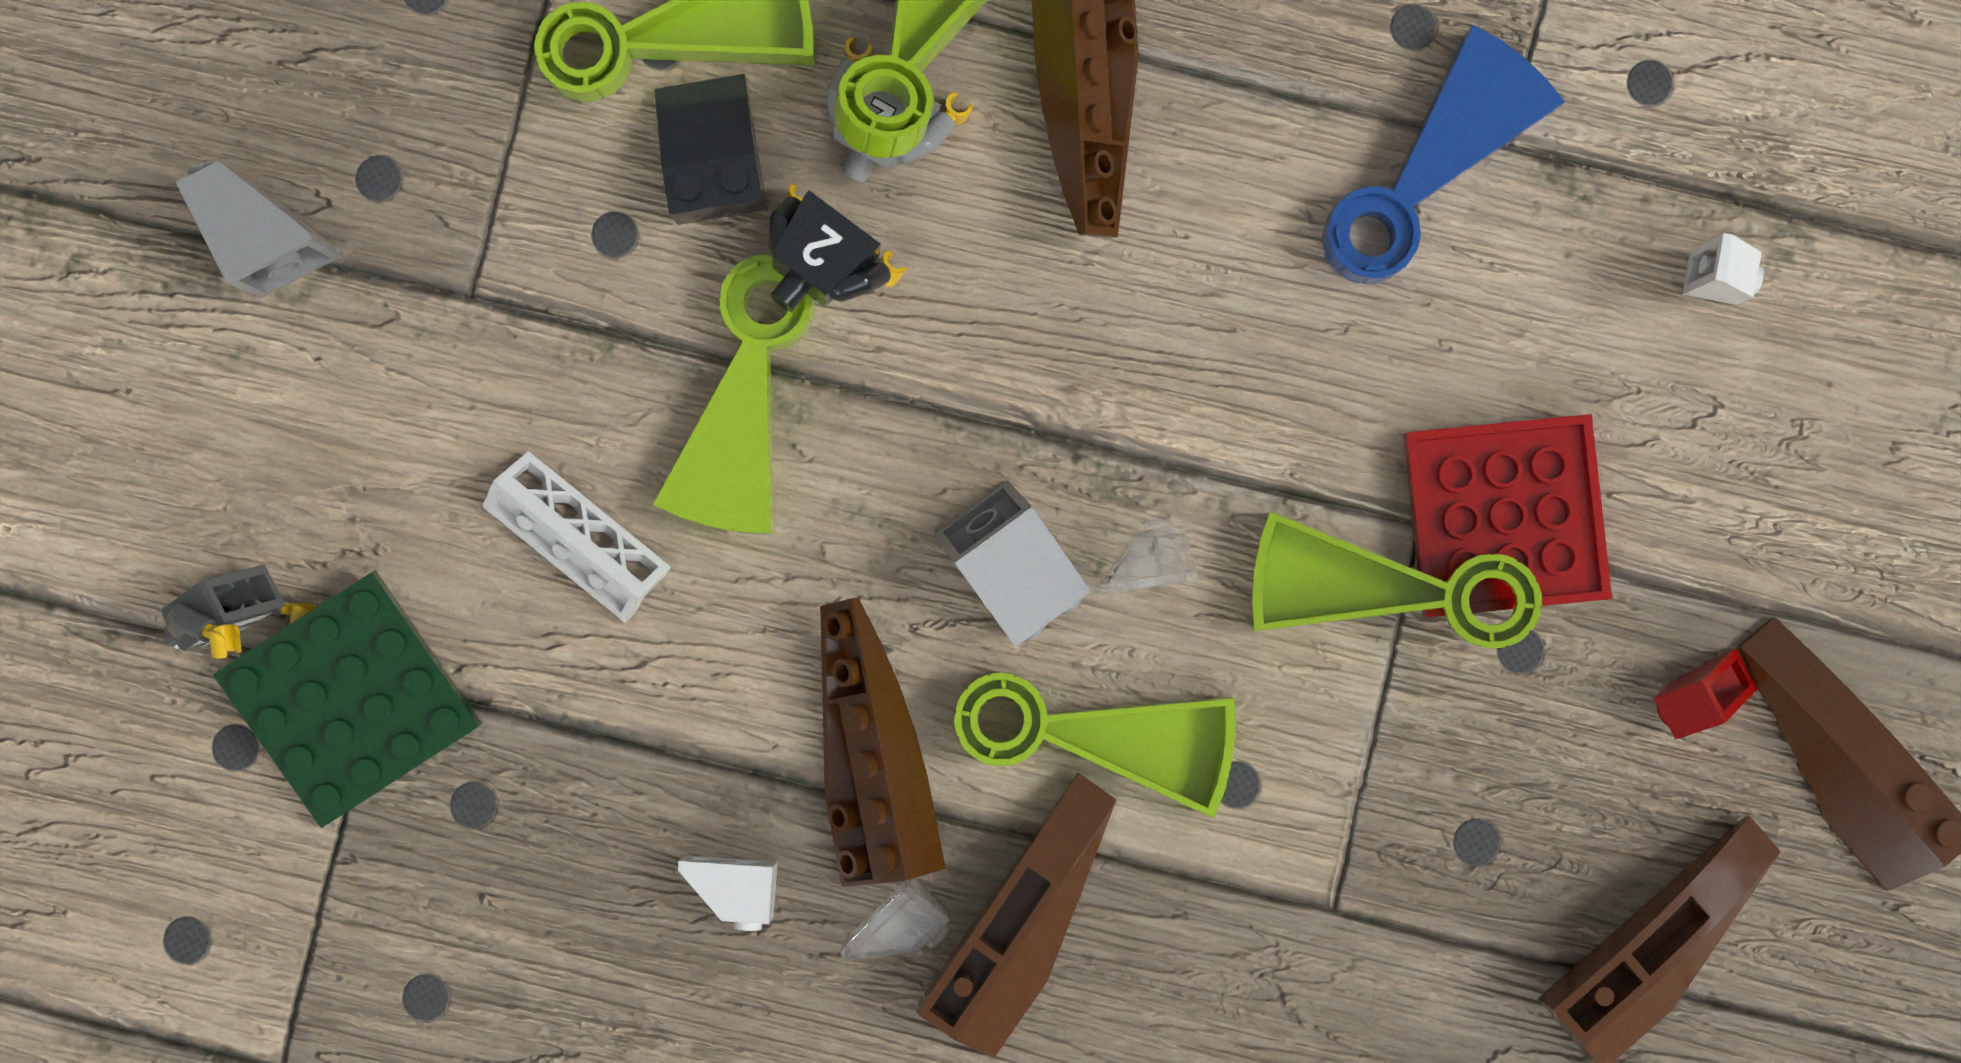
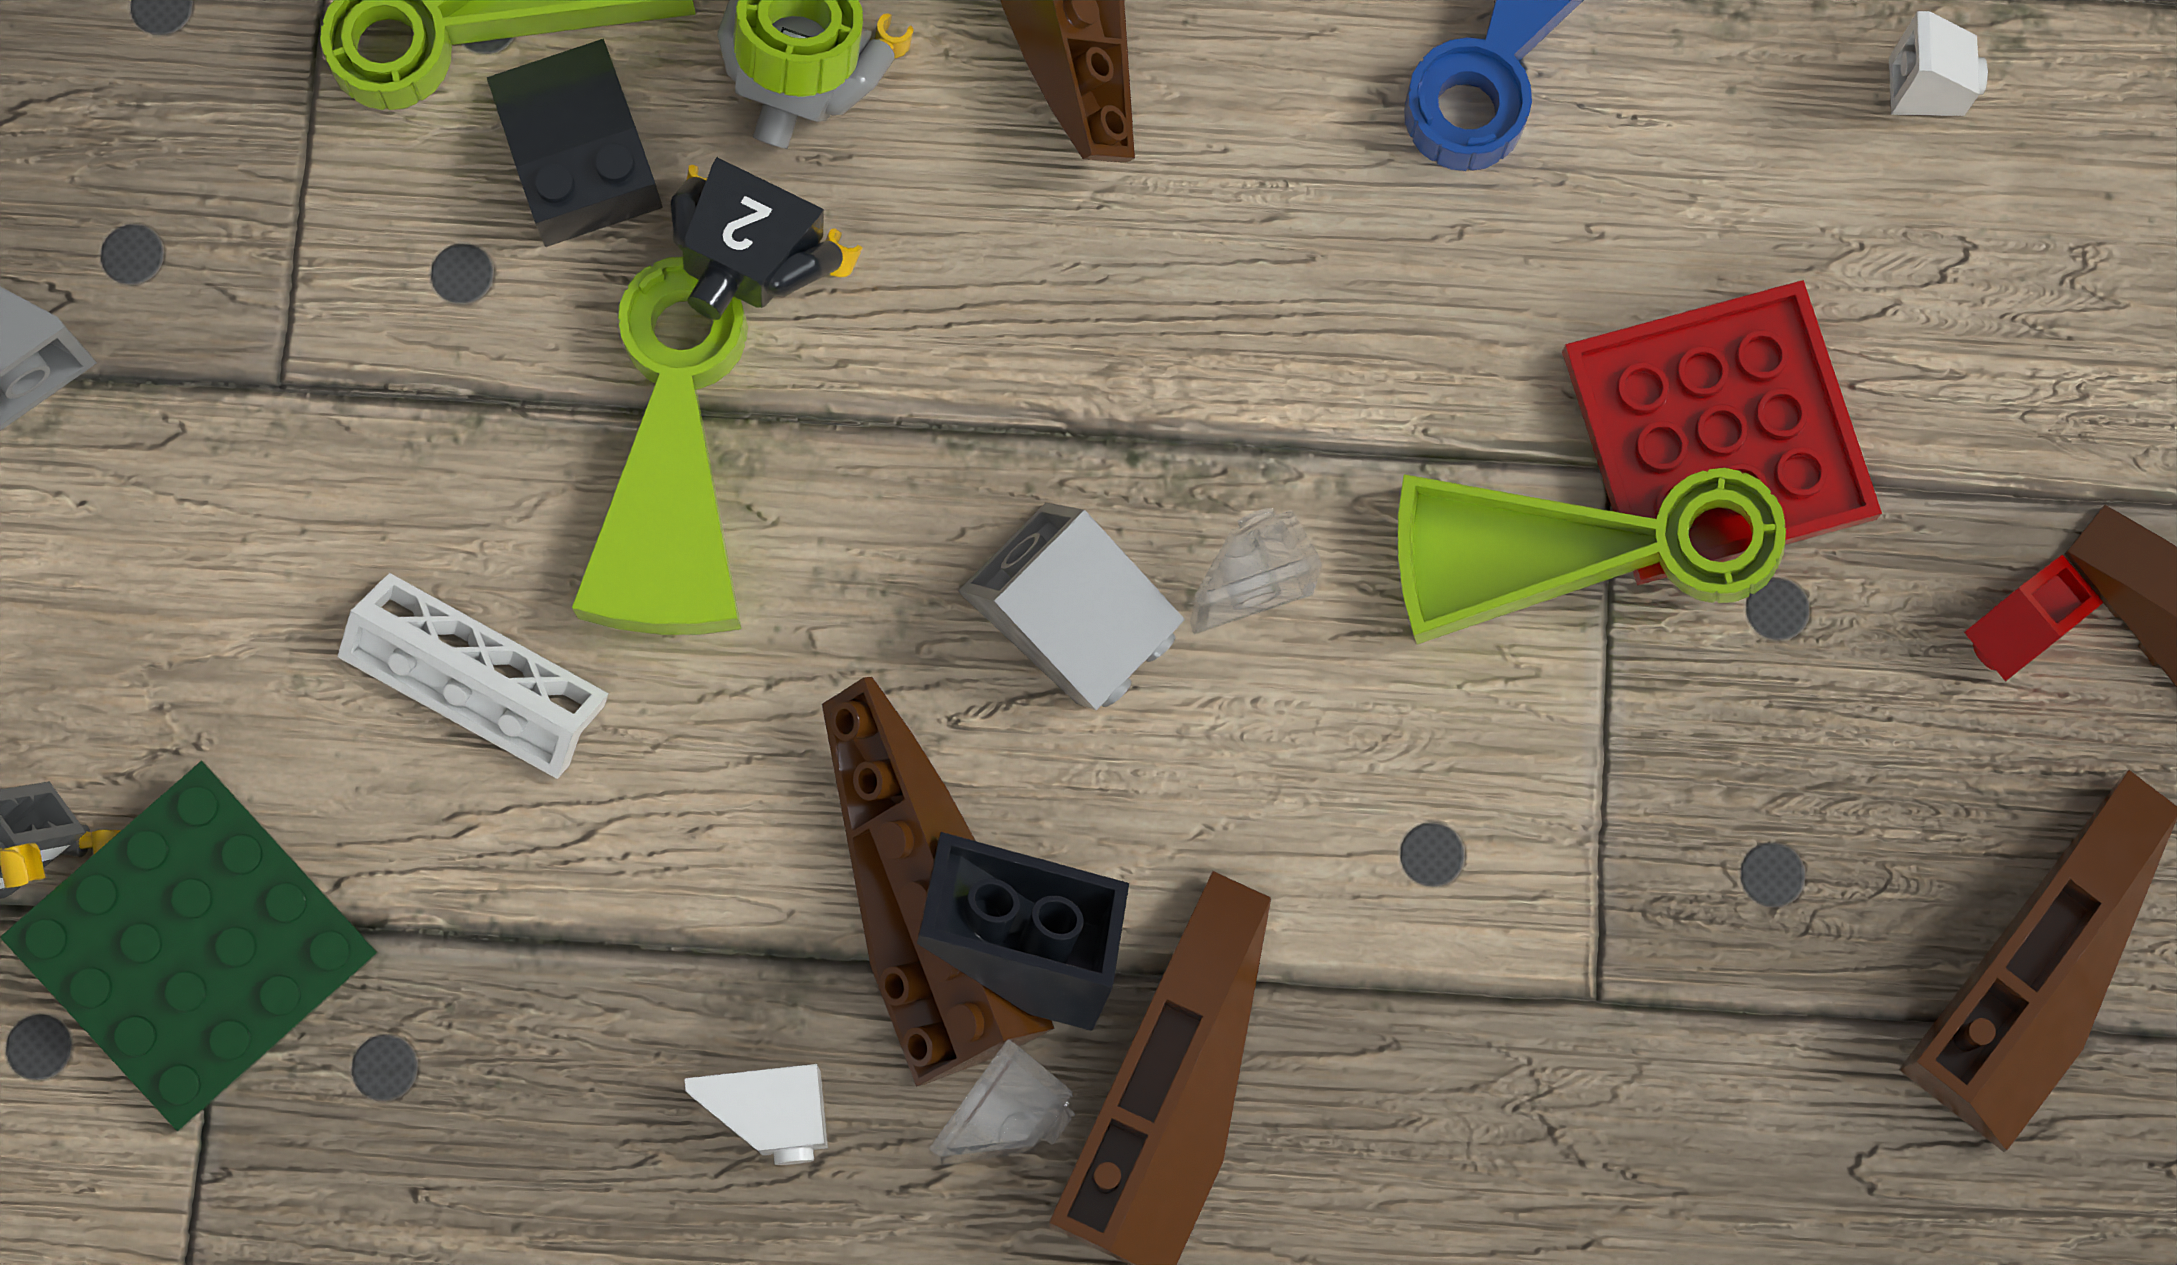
camera: 15 degrees left, 10 degrees down
(936, 799) = (1025, 928): none -> black slope
(1165, 746) = (1321, 814): lime piece -> none

